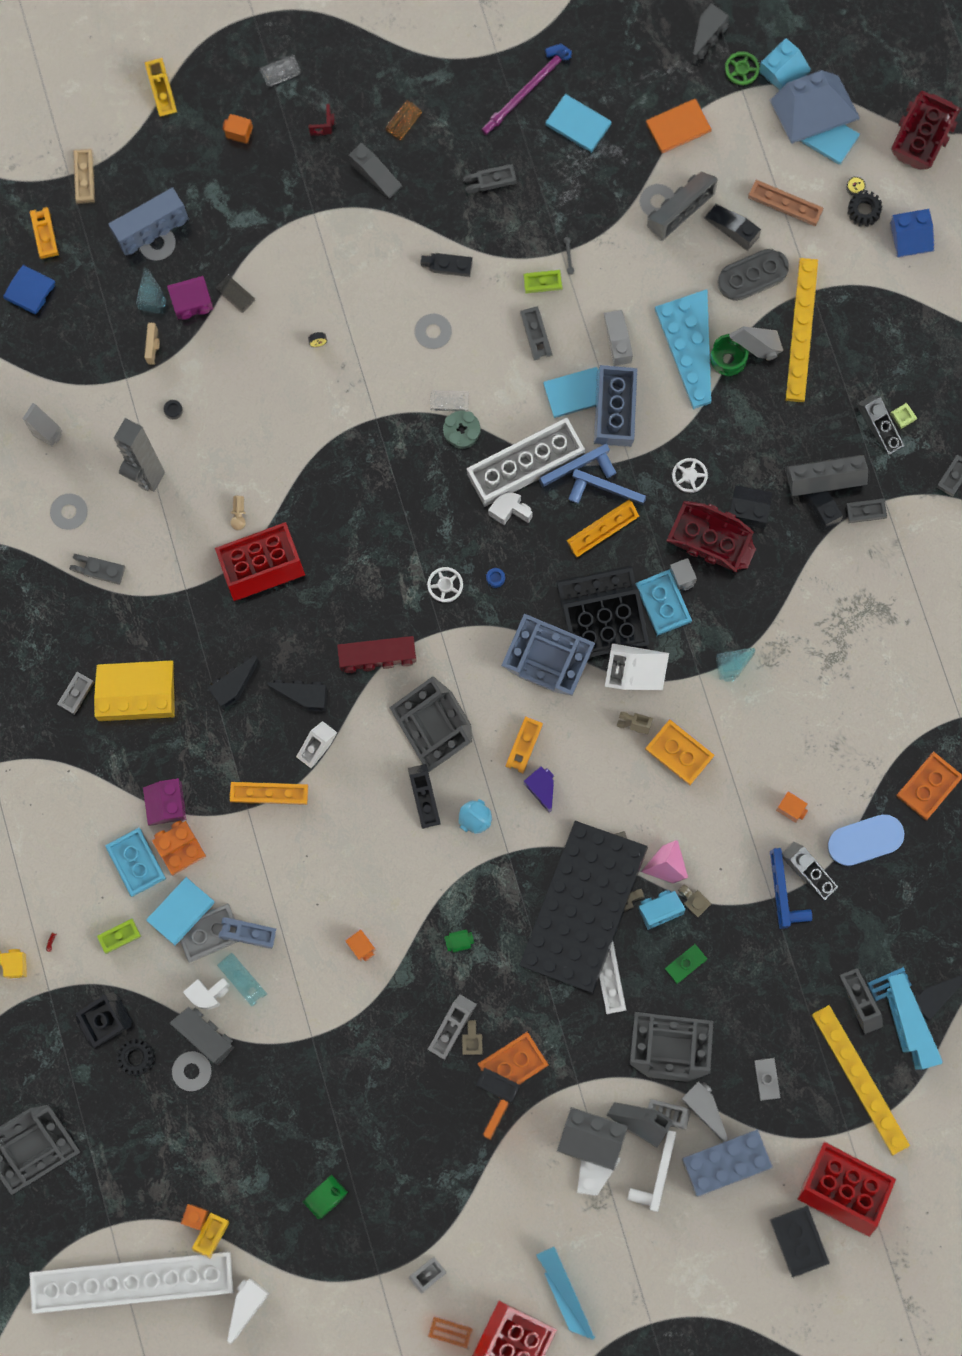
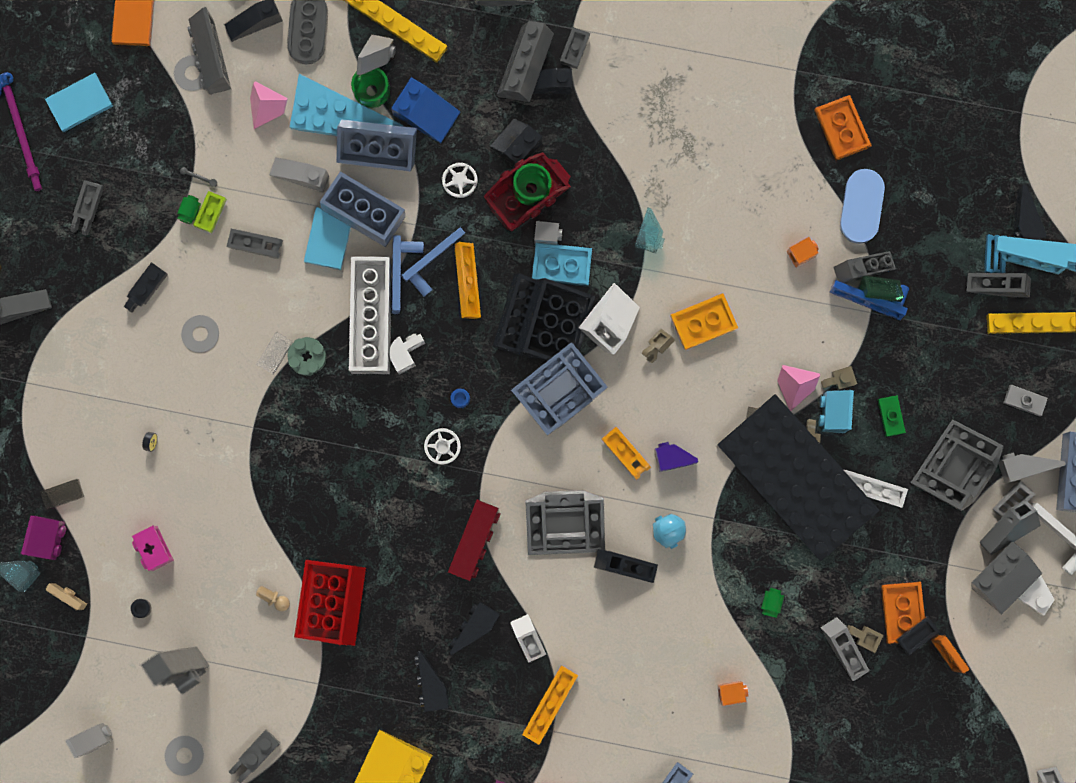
camera: 65 degrees left, 5 degrees up
(227, 400) = (161, 553): none -> dark pink brick
(535, 262) = (188, 209): none -> green brick
(664, 276) = (265, 104): none -> bright pink slope
(678, 386) = (376, 145): none -> sand blue brick
(717, 524) = (531, 174): none -> green piece
(735, 412) = (425, 110): none -> blue slope
(795, 892) = (881, 288): none -> clear green bracket

